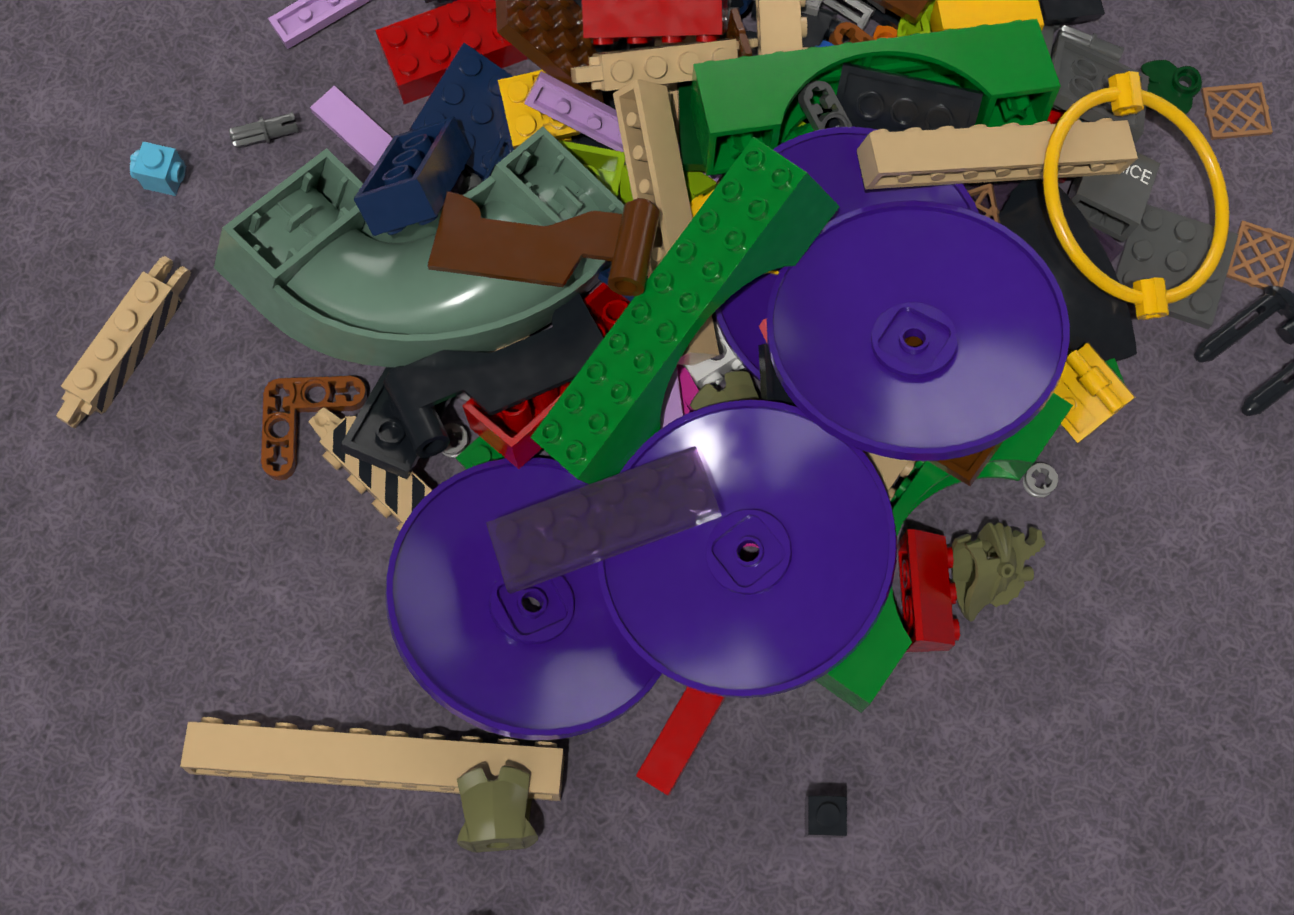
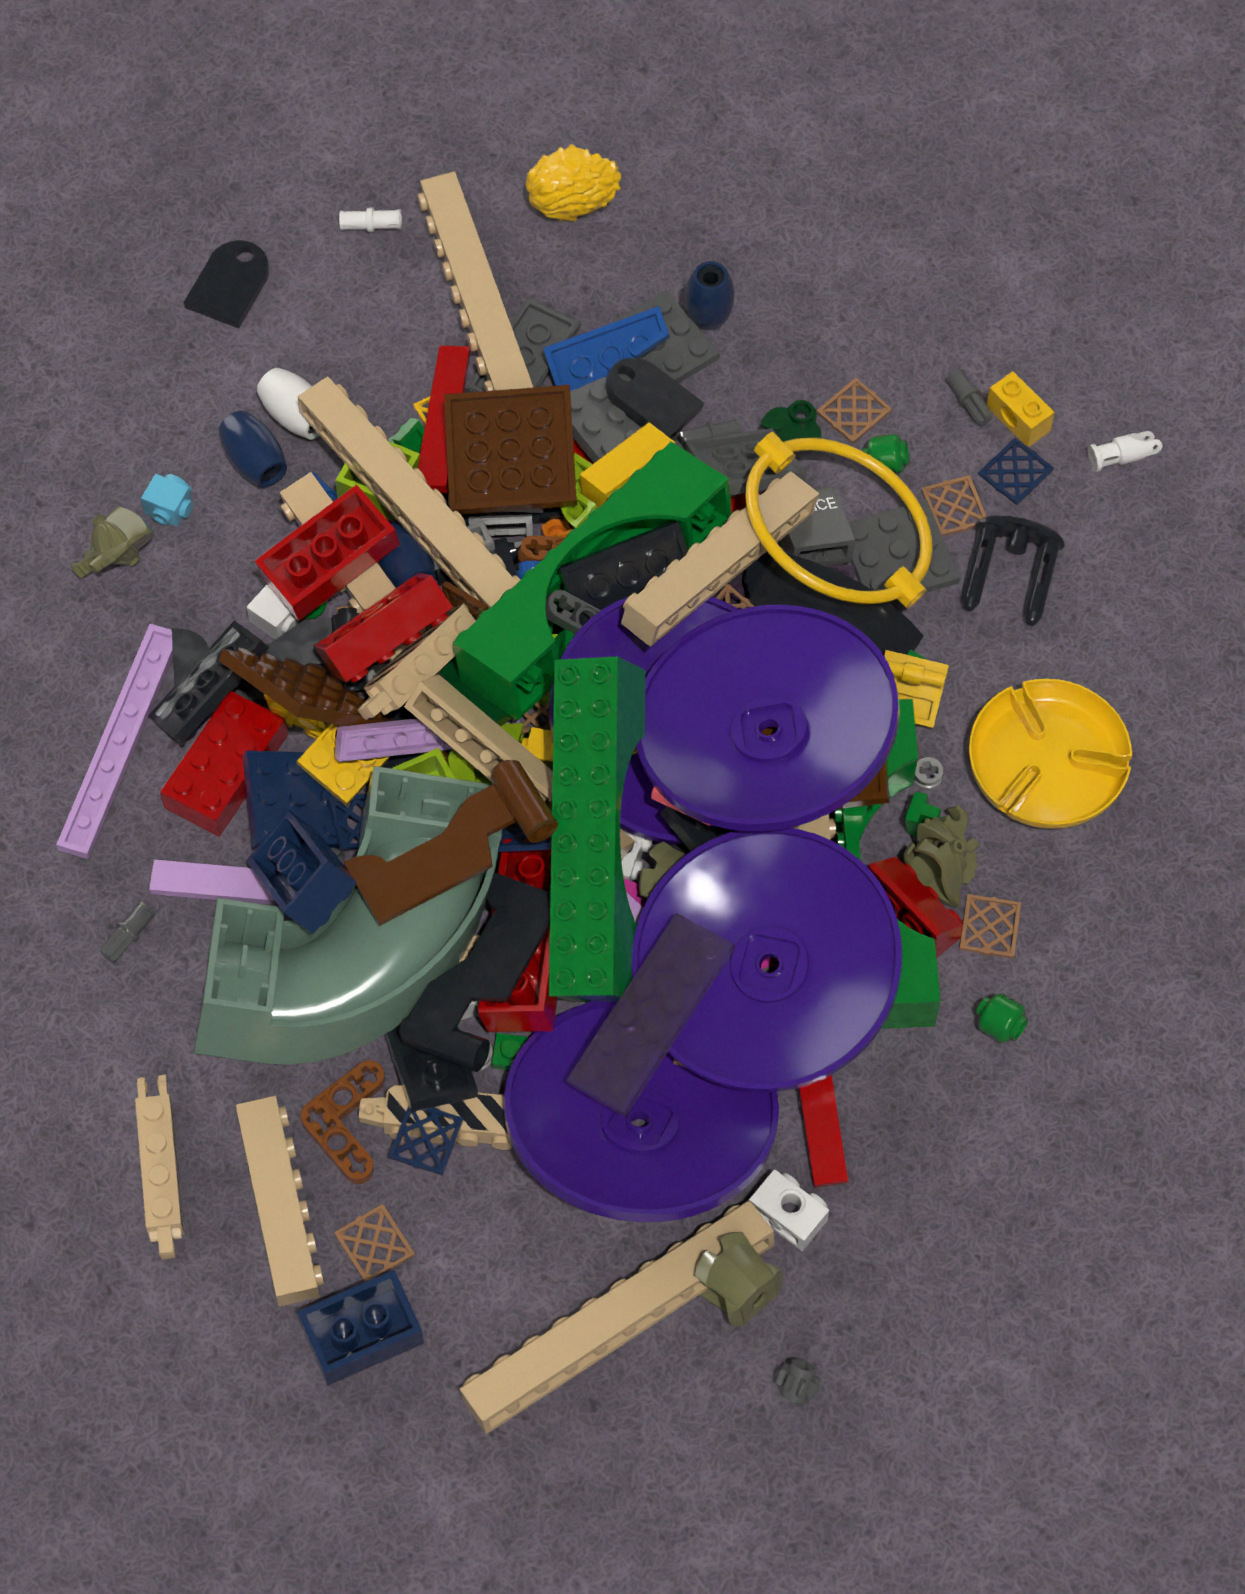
camera: 40 degrees left, 10 degrees down
(157, 168) = (70, 1019): medium azure brick -> none
(158, 603) = (360, 1327): none -> dark blue brick
(189, 443) = (277, 1201): none -> tan brick
(214, 536) = (360, 1222): none -> medium nougat window
(355, 502) = (417, 1162): none -> dark blue window
(581, 762) = (795, 1227): none -> white brick
(826, 816) = (969, 1110): black brick -> none
(923, 754) = (1002, 1018): none -> green head
(1002, 511) = (919, 811): none -> green tile
(1005, 640) = (987, 948): none -> medium nougat window
(1166, 545) = (1050, 753): none -> yellow piece
(1238, 167) = (890, 451): none -> green head

